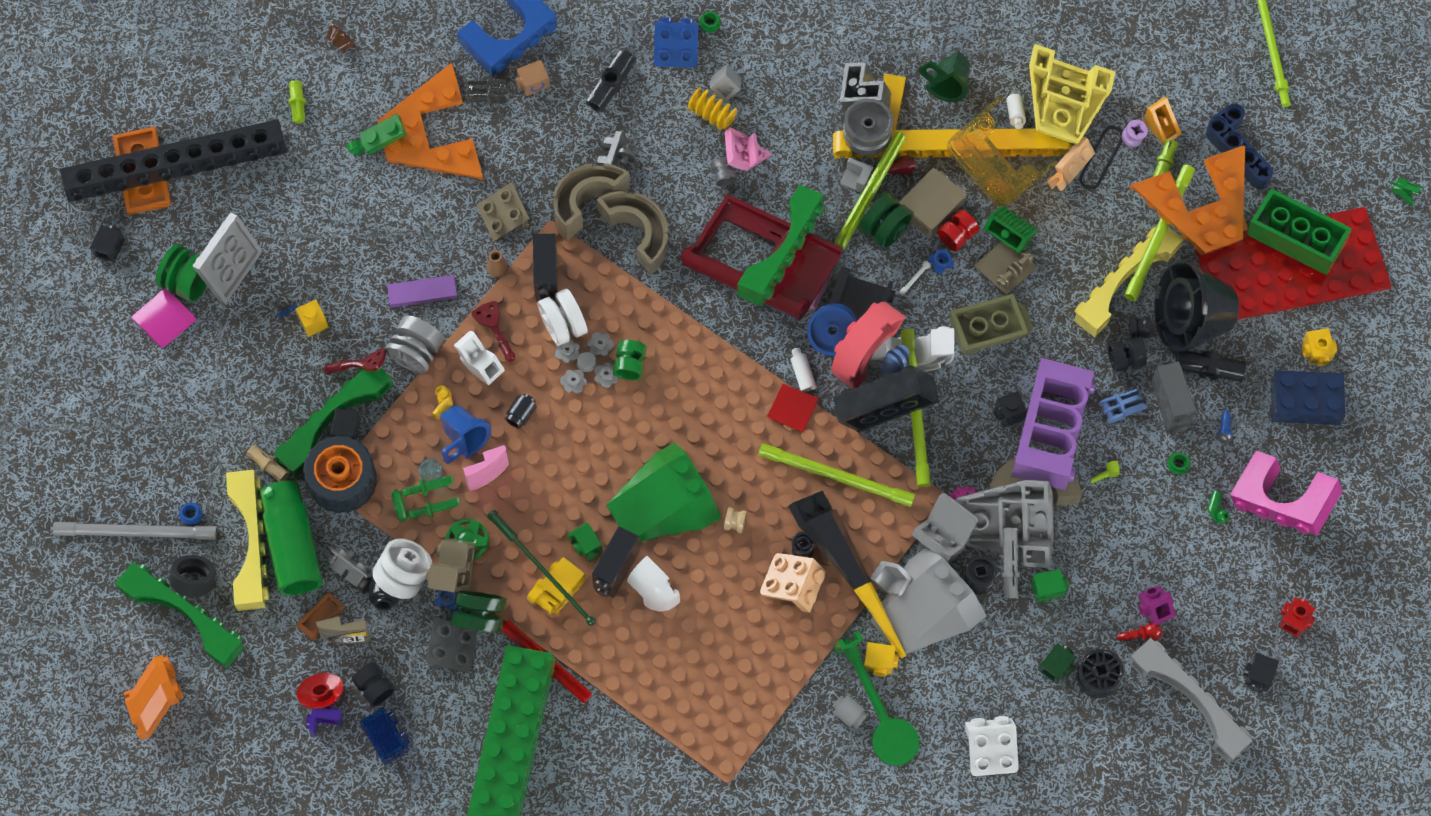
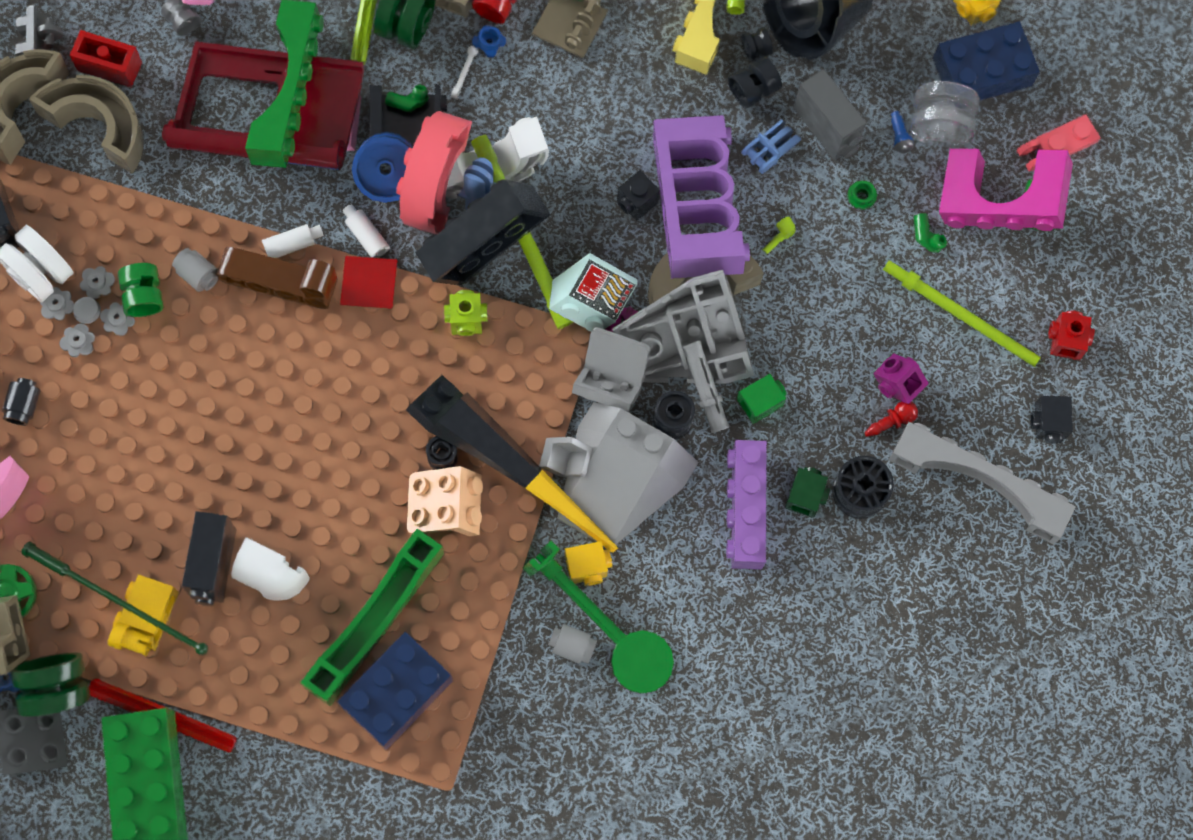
camera: 25 degrees left, 5 degrees up
(585, 542) = (162, 544): green brick -> none
(659, 186) = (106, 58): none -> red brick
(664, 498) = (244, 452): green wedge -> none
(673, 358) = (195, 270): none -> light grey brick
(689, 661) = (353, 646): none -> green arch
(713, 699) = (395, 690): none -> dark blue brick
(730, 384) = (279, 278): none -> reddish brown beam
(735, 520) = (344, 449): tan wheel -> none
(747, 360) = (291, 240): none -> white cylinder
(854, 452) = (464, 322): none -> lime brick
(868, 287) = (410, 102): none -> green arm
(894, 494) = (370, 348): lime piece -> none
(950, 468) = (591, 293): none -> slope
(989, 323) = (575, 98): olive slope -> none
(992, 746) = (764, 624): white bracket -> none
(1013, 652) = (748, 504): none -> medium lavender brick
(1192, 538) = (912, 281): none -> lime bar
(1211, 365) = (859, 62): black piece -> none
(1261, 424) = (945, 114): none -> clear wheel
(1348, 473) = (1070, 136): none -> coral hinge

